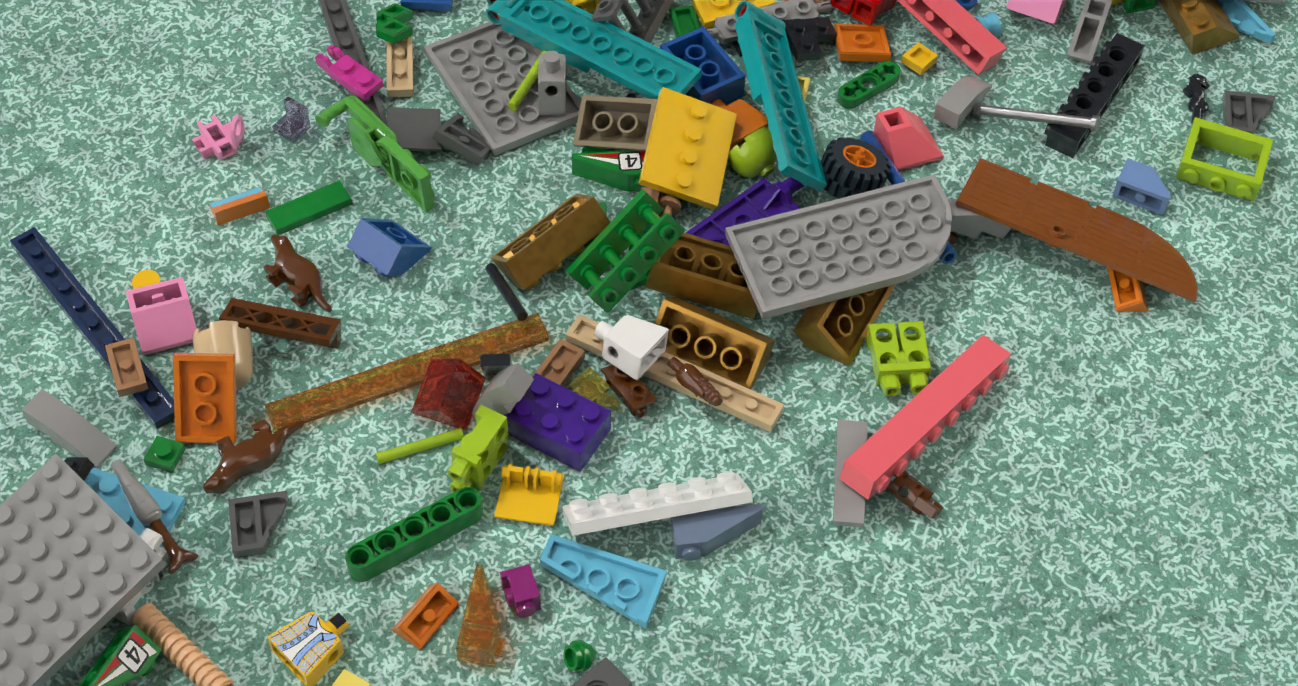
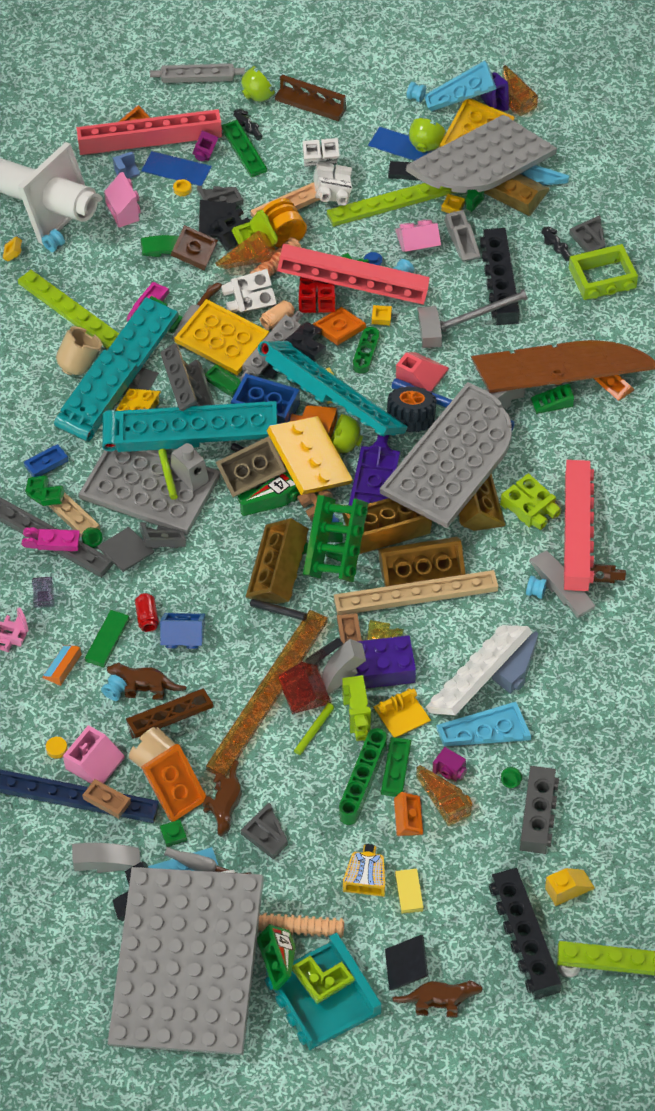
camera: 35 degrees left, 0 degrees up
(258, 259) = (114, 687): none -> medium azure wheel
(371, 203) = (146, 612): none -> red head
(385, 152) = (118, 573): bright green plate -> none
(394, 96) = (92, 537): none -> green tile
(465, 550) = (396, 766): none -> green tile
(632, 344) = (385, 590): white torso -> none
(633, 391) = (394, 615): reddish brown hinge -> none
(694, 381) = (437, 589): reddish brown piece -> none
(816, 456) = (536, 587): none -> medium azure wheel
(1039, 271) = (561, 403): none -> green slope
(1142, 187) = (573, 317): medium blue slope -> none

